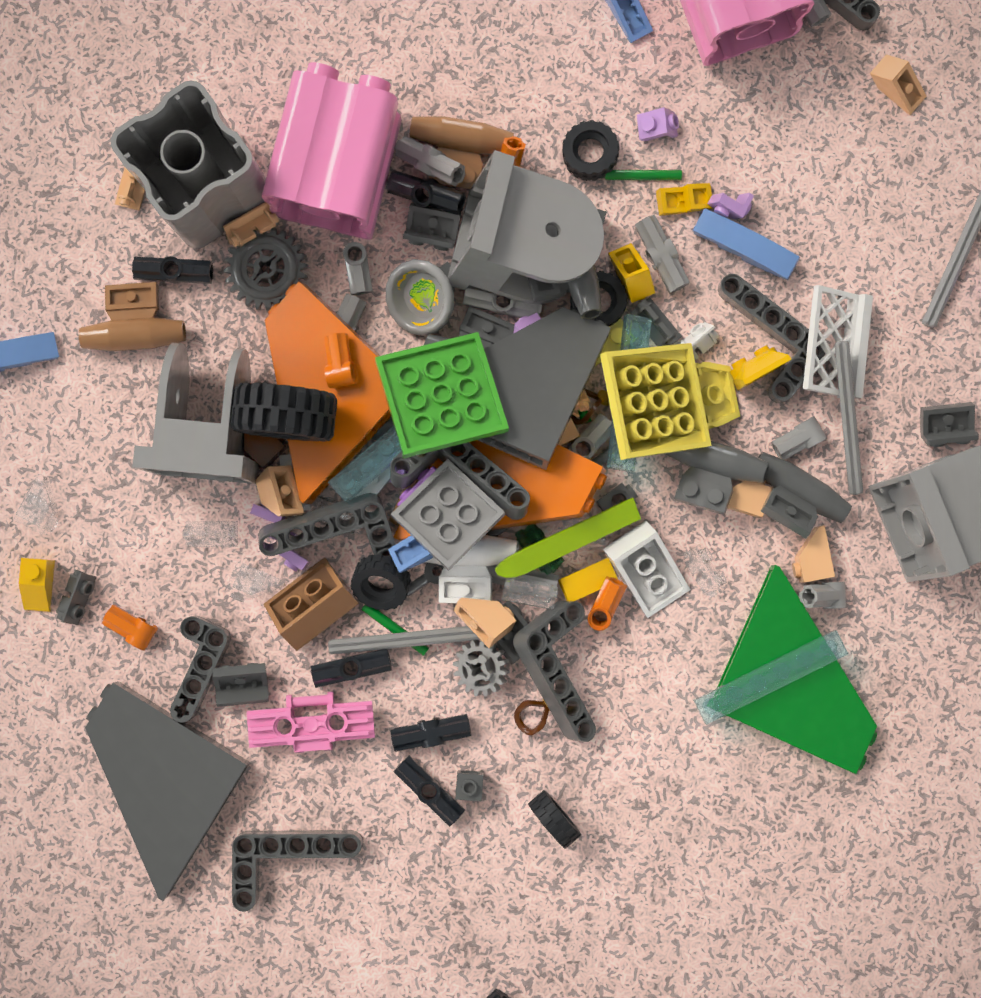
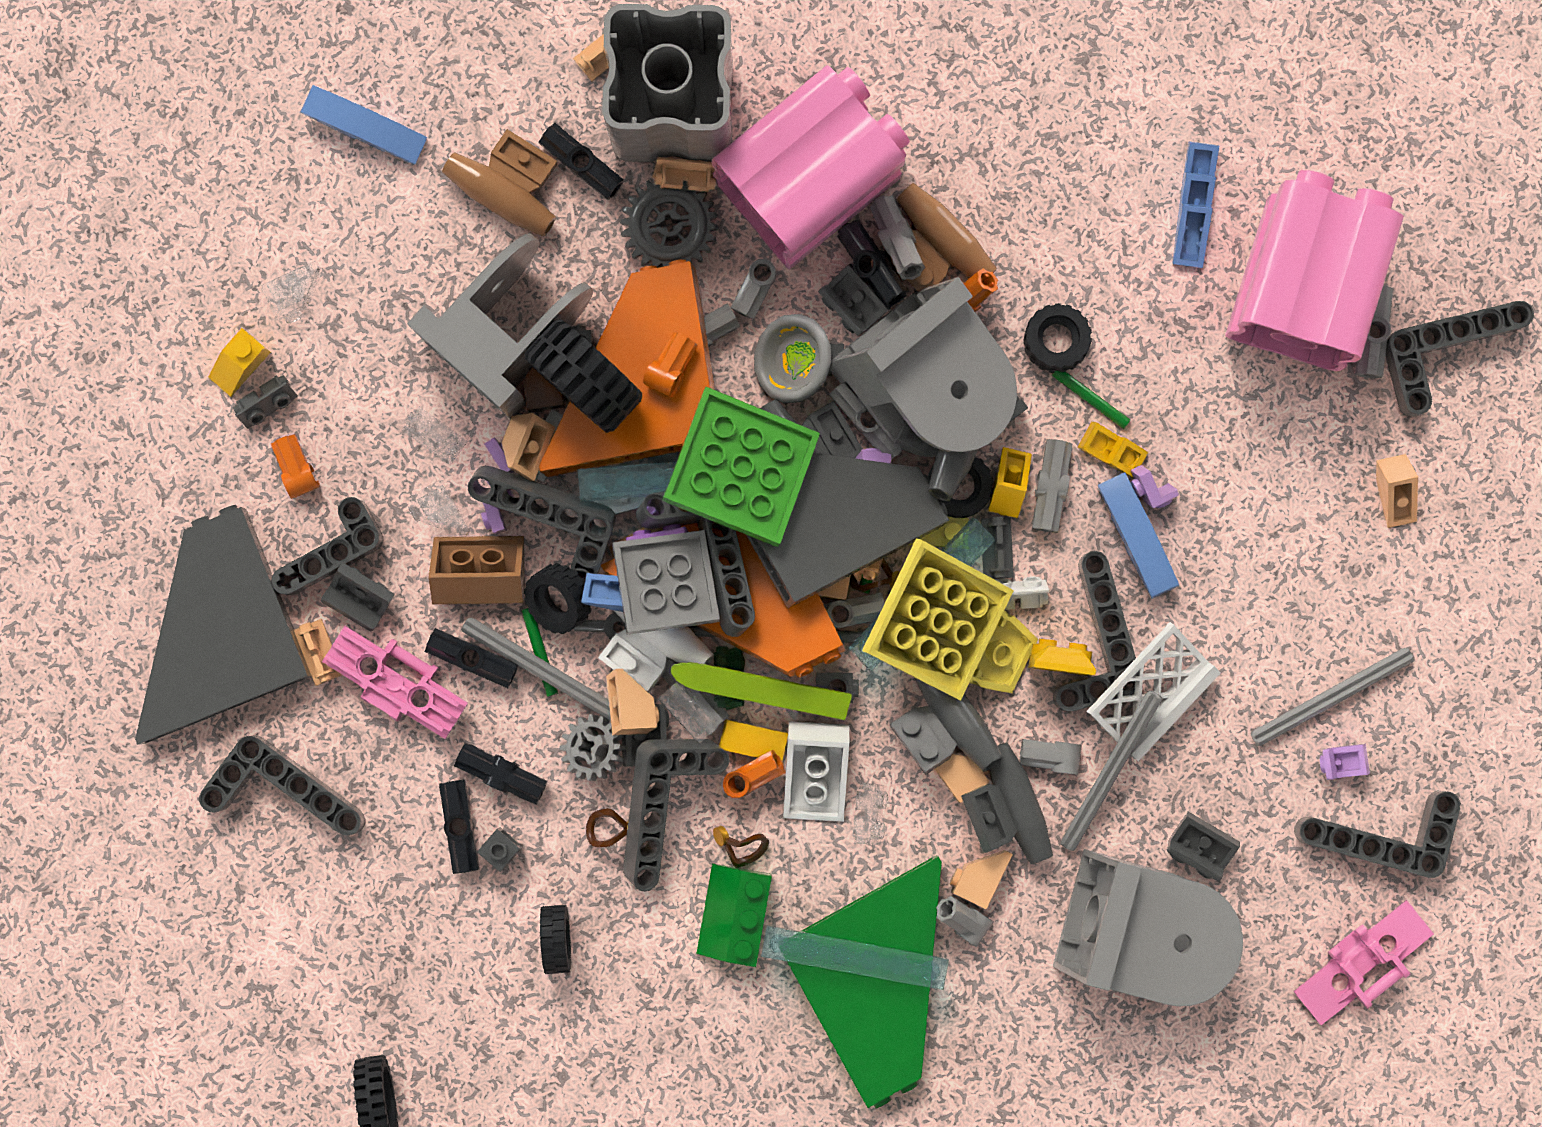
camera: 30 degrees right, 0 degrees up
(236, 740) = (315, 645): none -> light nougat hinge
(616, 663) = (722, 838): none -> reddish brown piece
(657, 124) = (1139, 360): lavender bracket -> none
(664, 709) = (734, 914): none -> green slope

